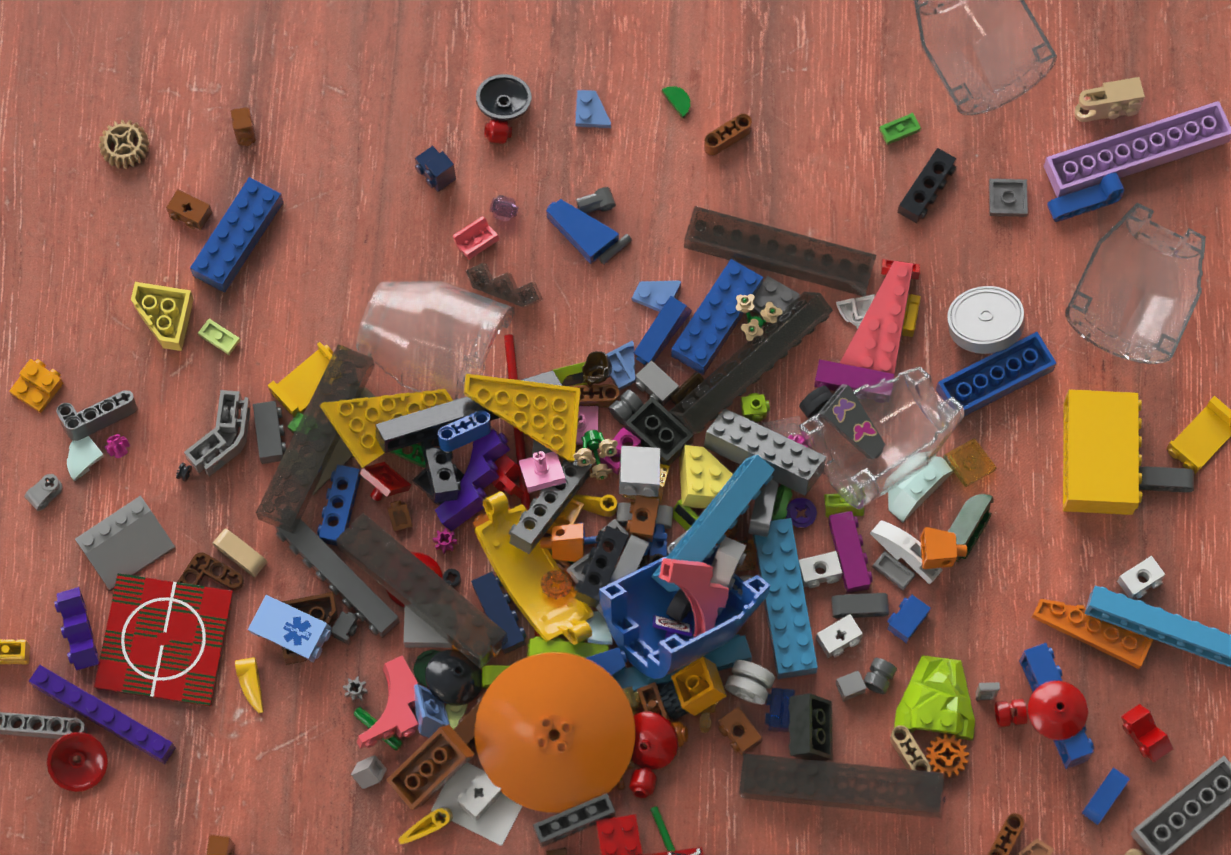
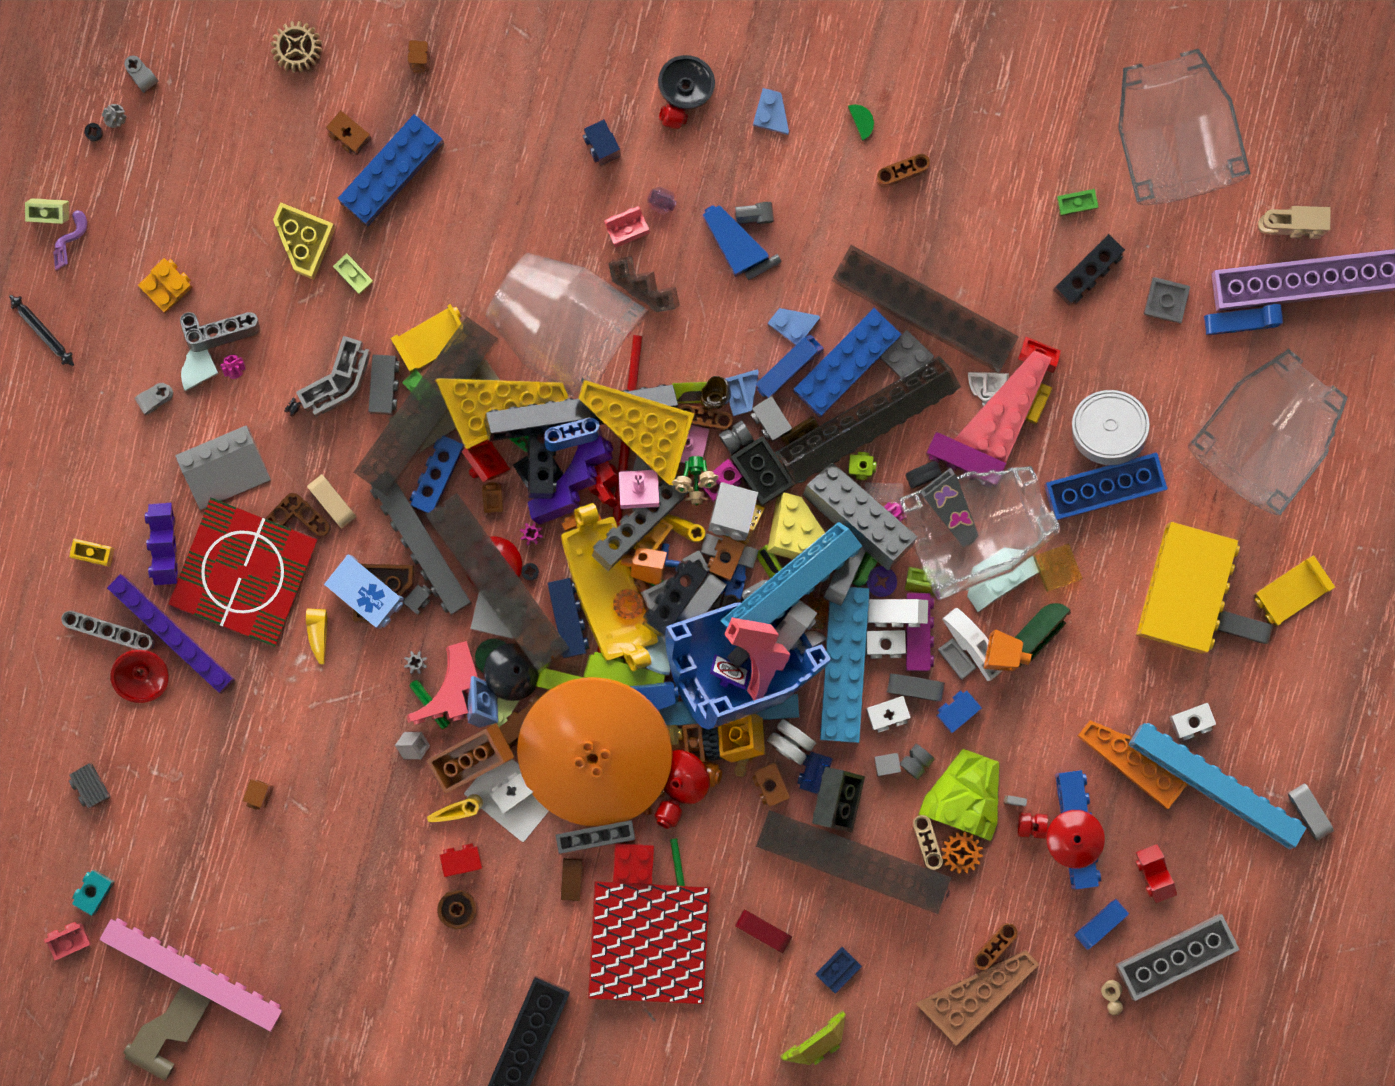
camera: 10 degrees right, 15 degrees up
(755, 324) = (883, 378): tan plant -> none
(824, 533) = (897, 612): none -> white brick

